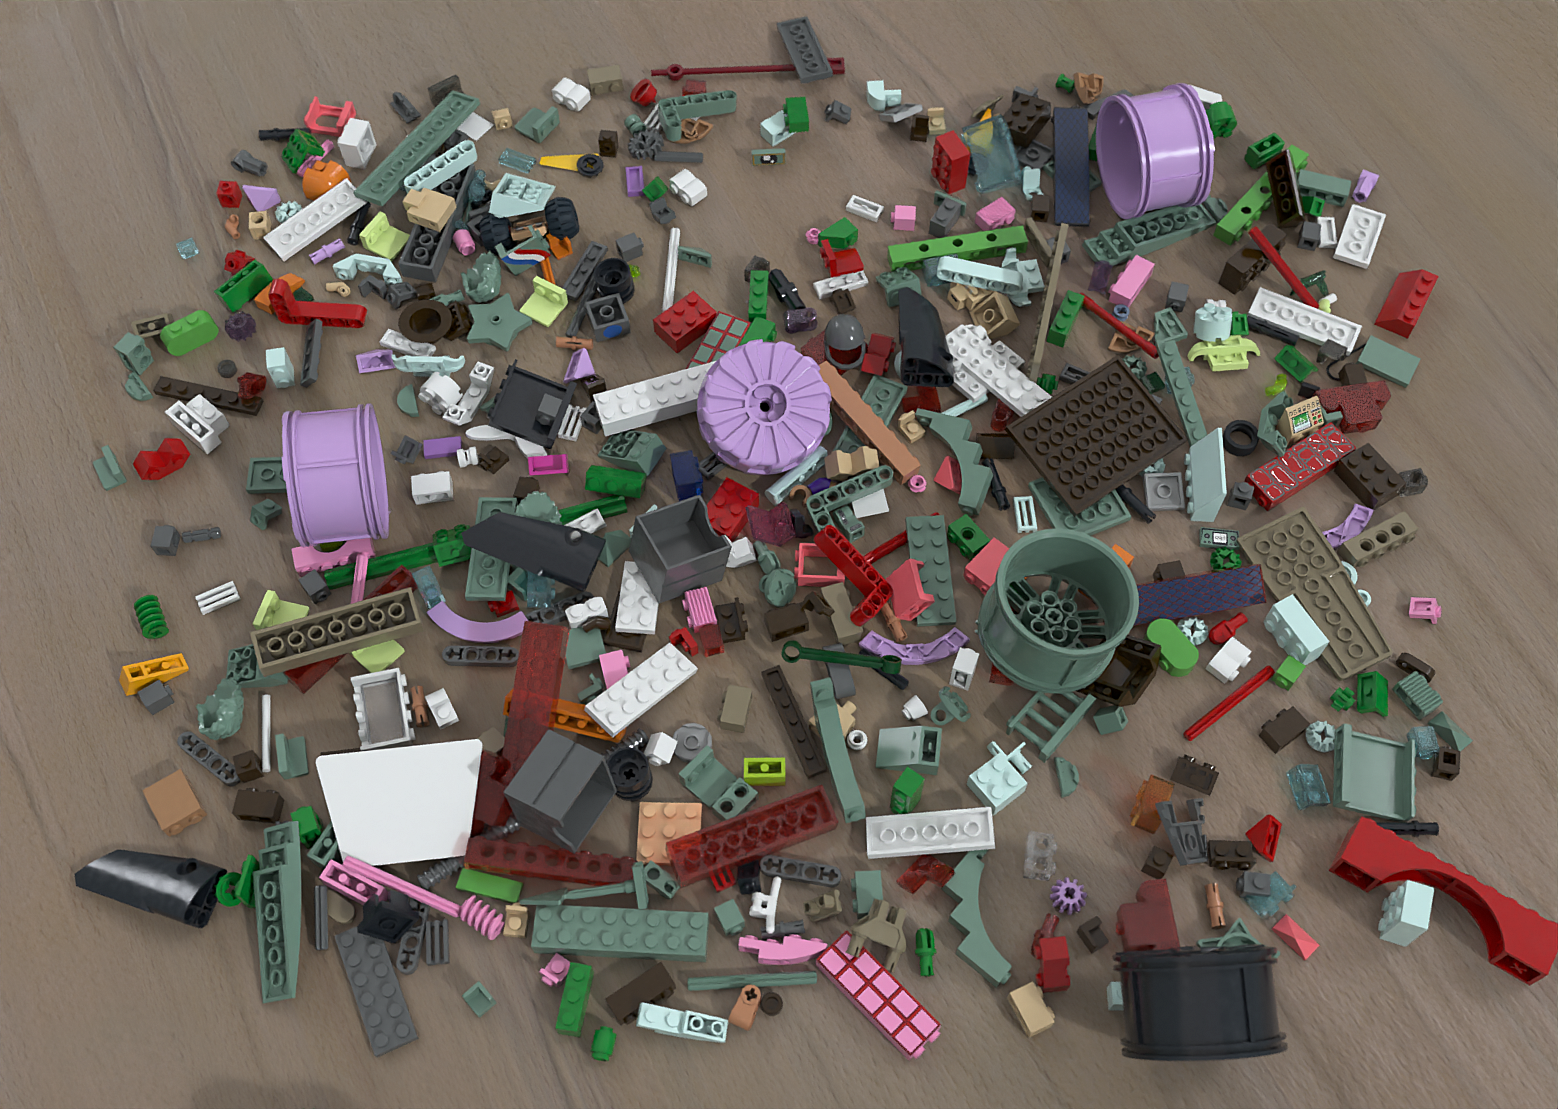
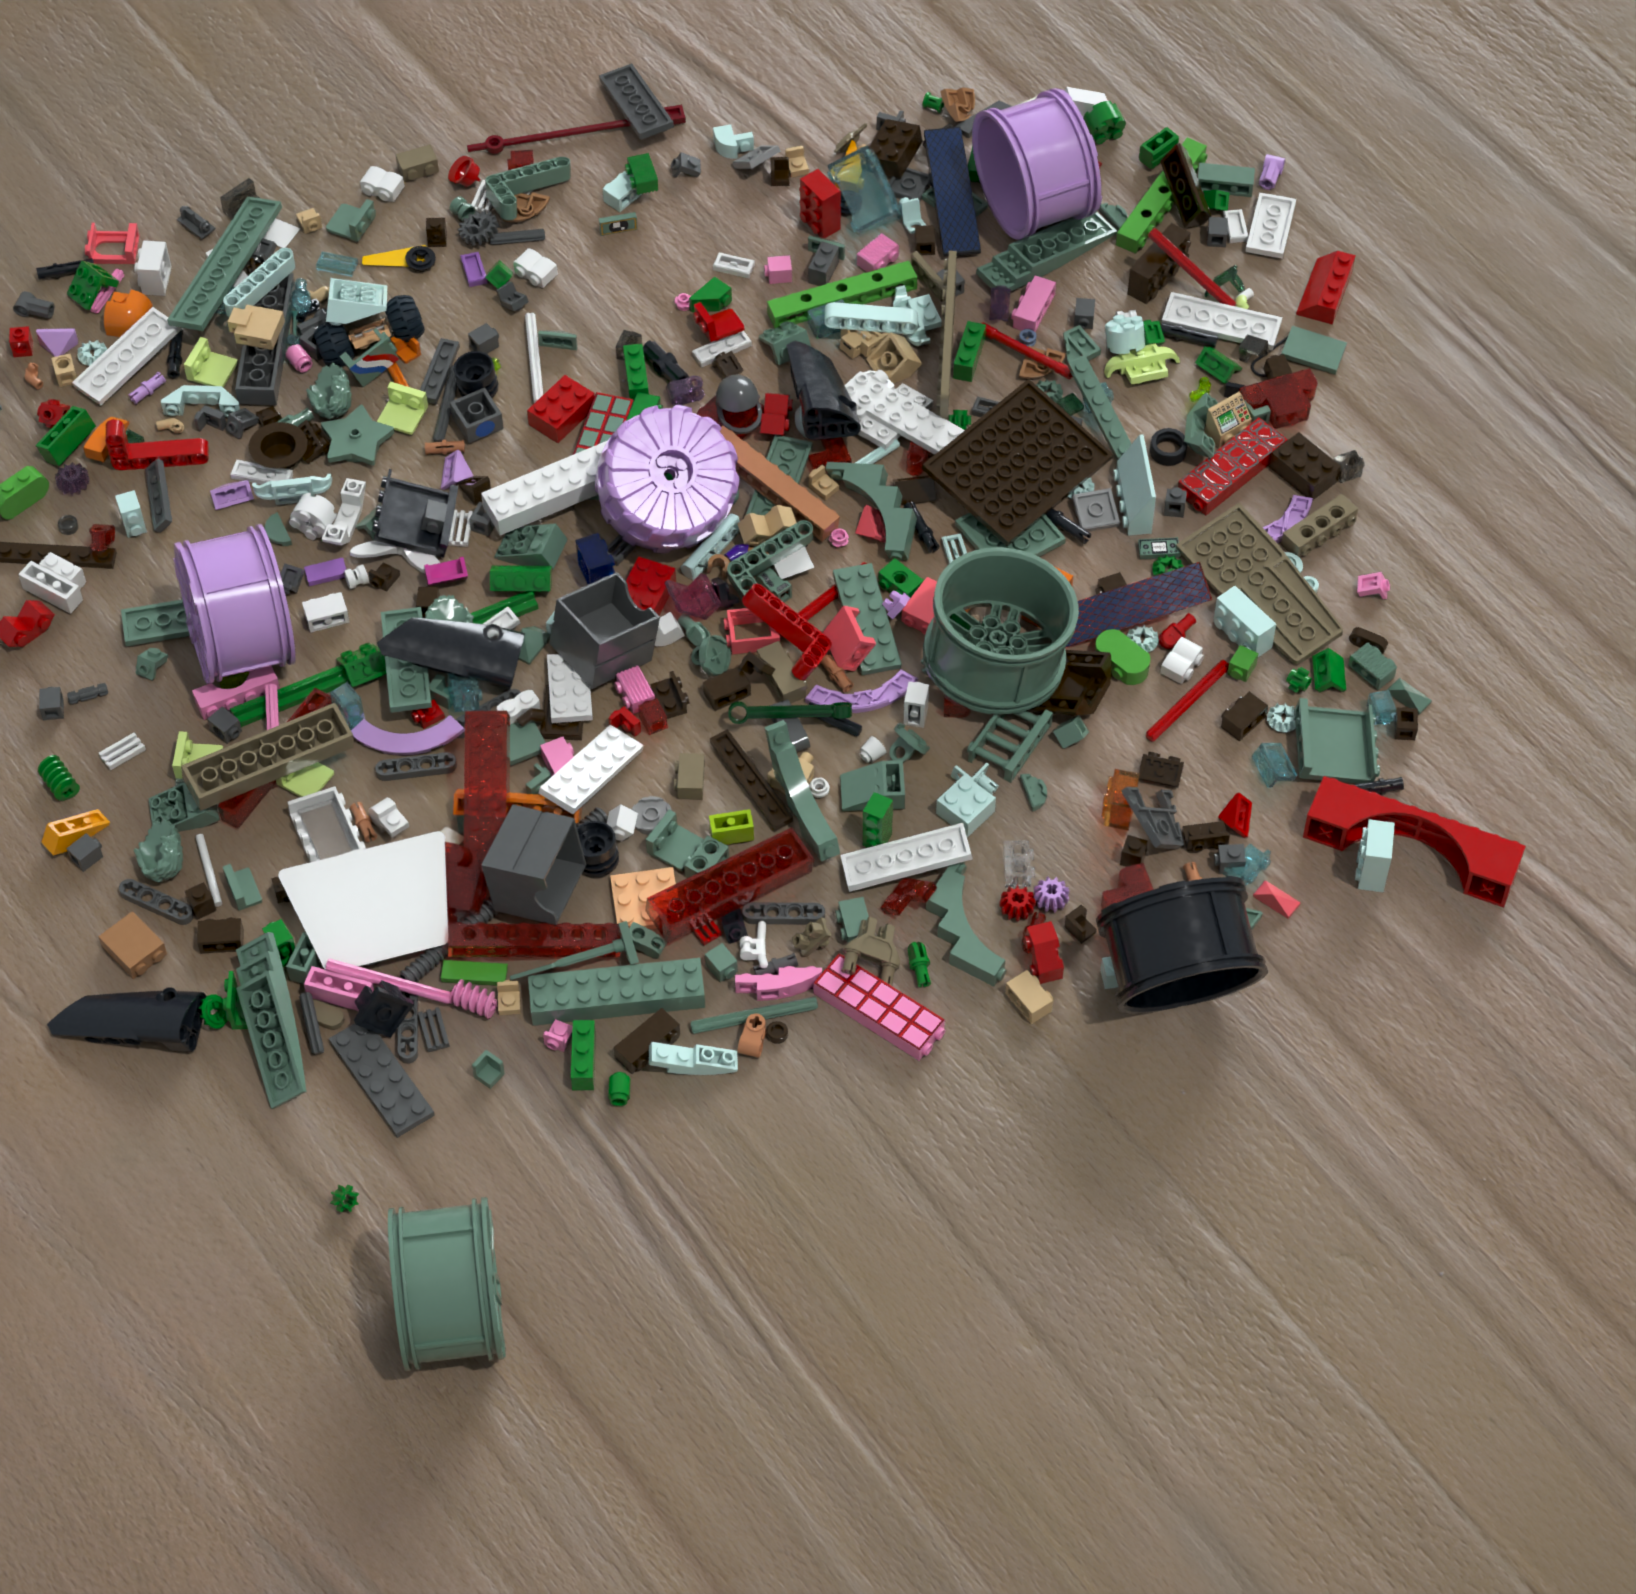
camera: 10 degrees left, 5 degrees down
(960, 562) = (897, 605): none -> lavender tile
(1030, 906) = (1017, 903): none -> red gear

